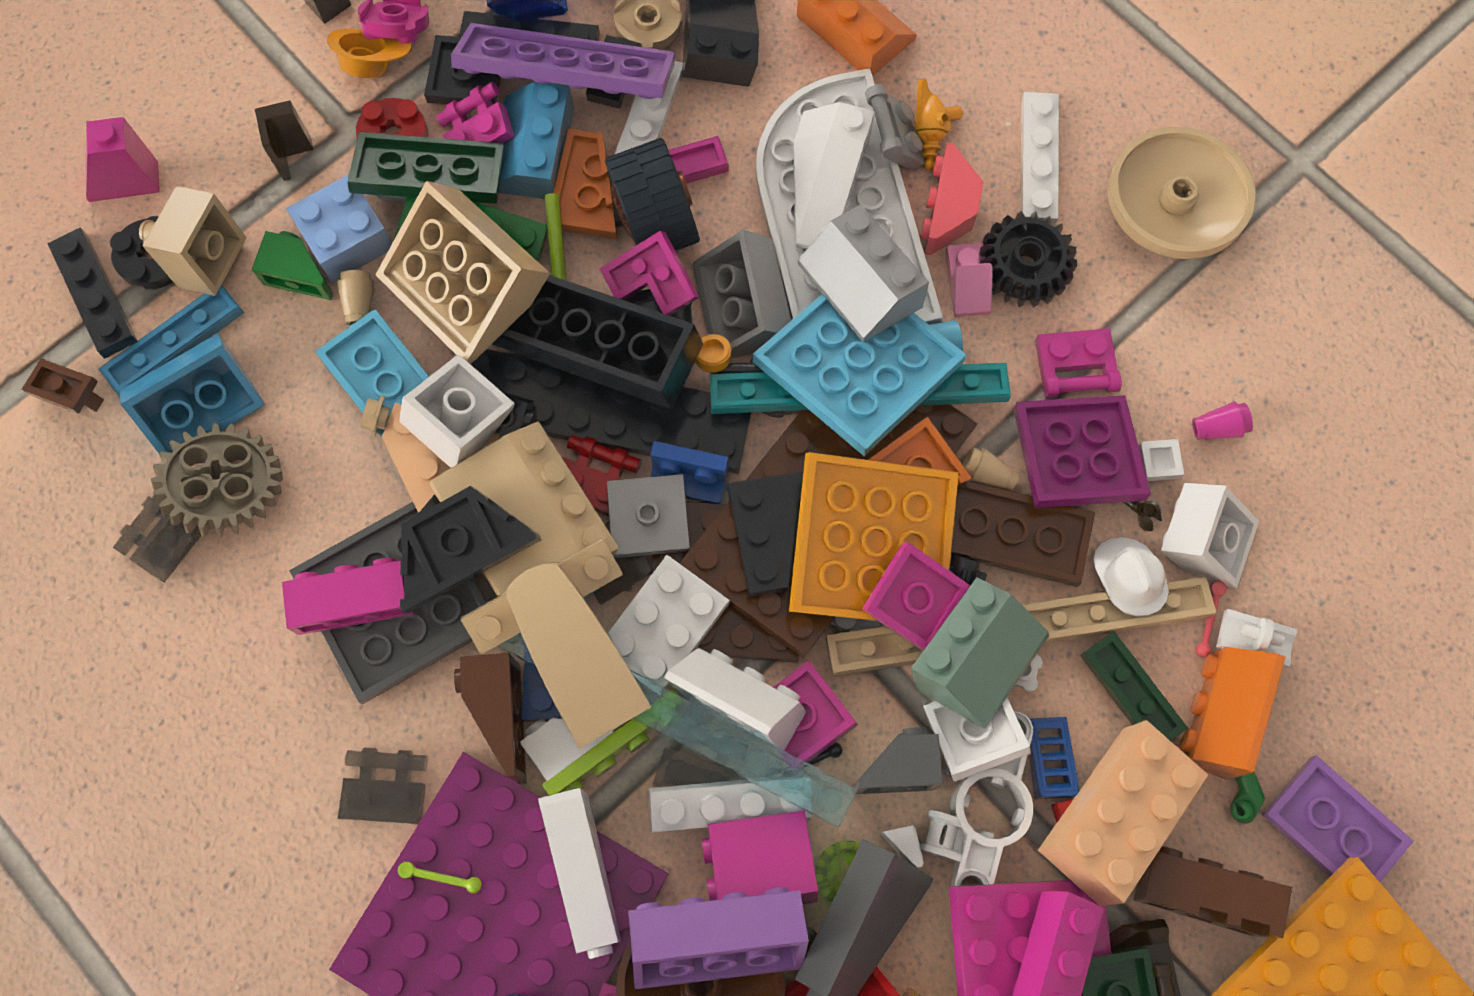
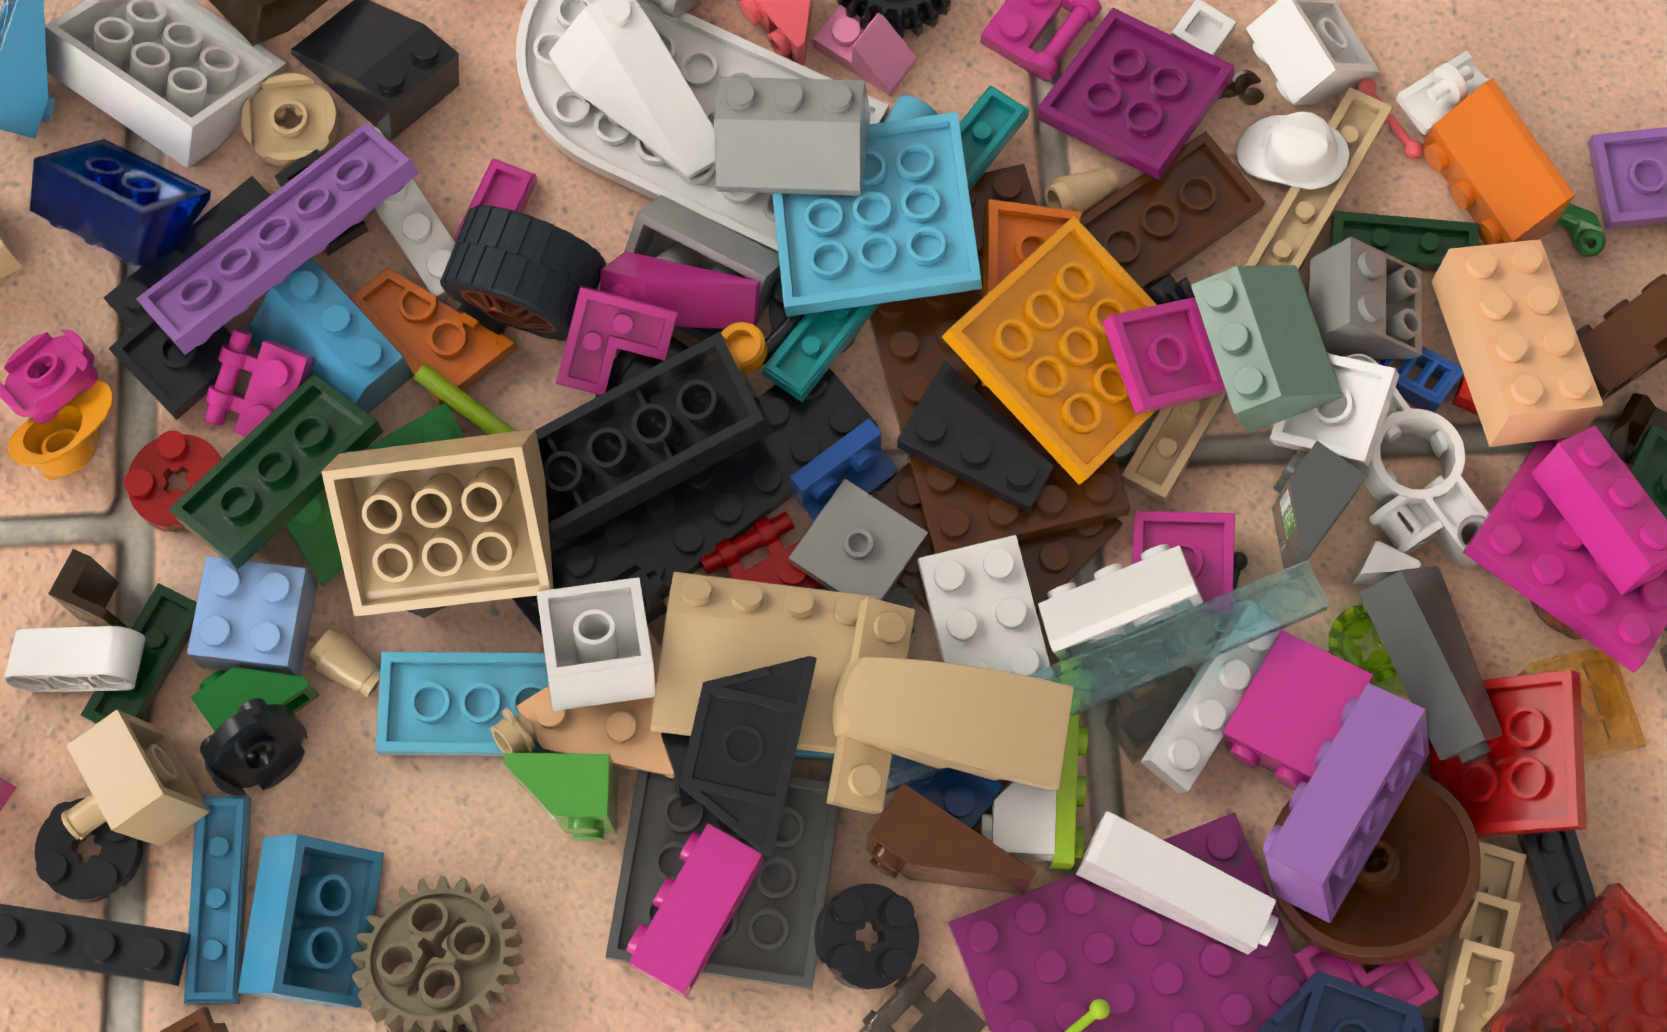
camera: 50 degrees left, 0 degrees up
(242, 158) = (75, 659): none -> white beam
(262, 286) = (231, 752): none -> black plate
(270, 194) = (167, 628): none -> dark green plate
(364, 473) = (571, 789): none -> bright green slope
(415, 733) = (846, 957): none -> black plate
(720, 296) = (698, 294): none -> dark pink slope
(1068, 698) = (1366, 302): none -> light grey slope

